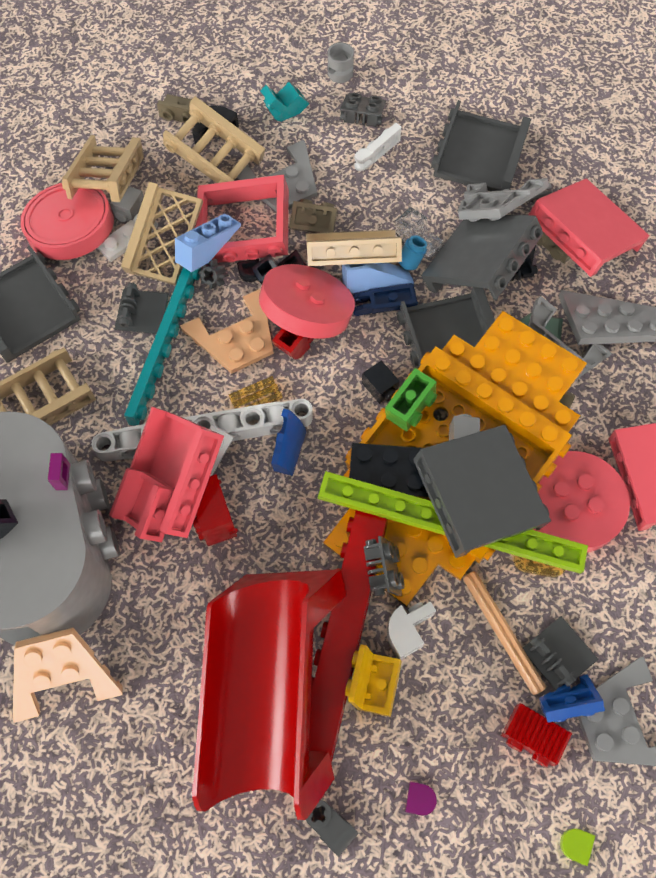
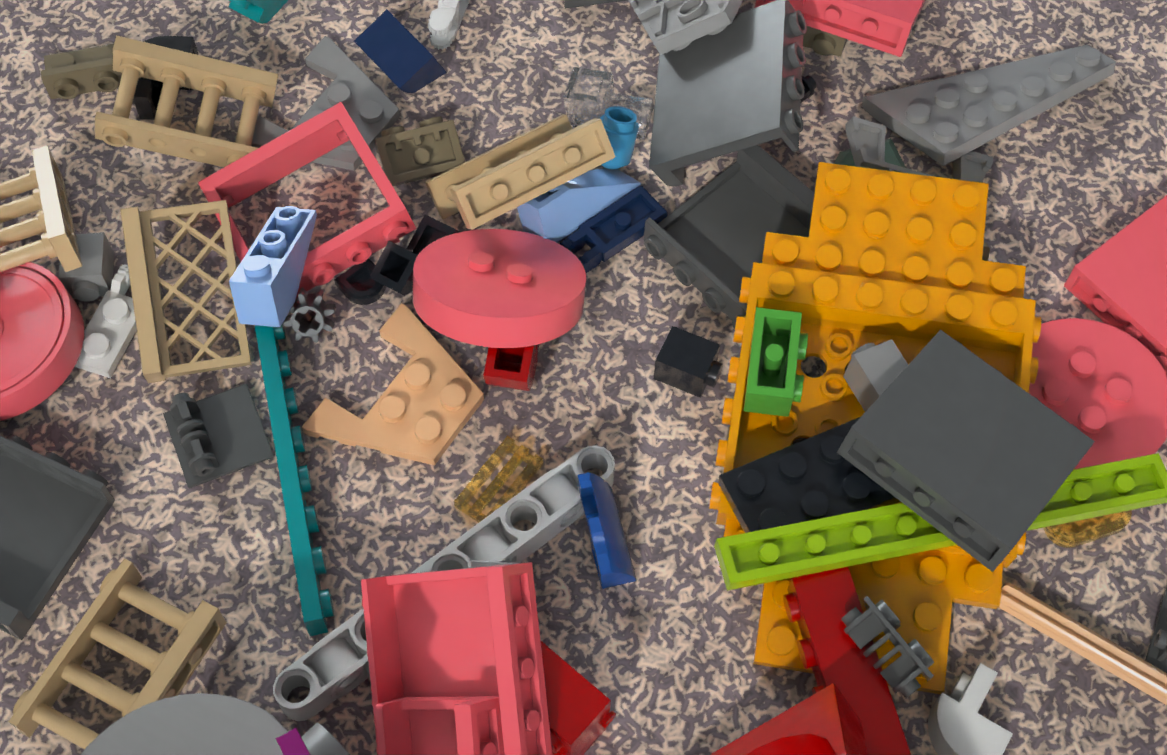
camera: 30 degrees left, 5 degrees down
(333, 164) = (399, 54): none -> dark blue brick

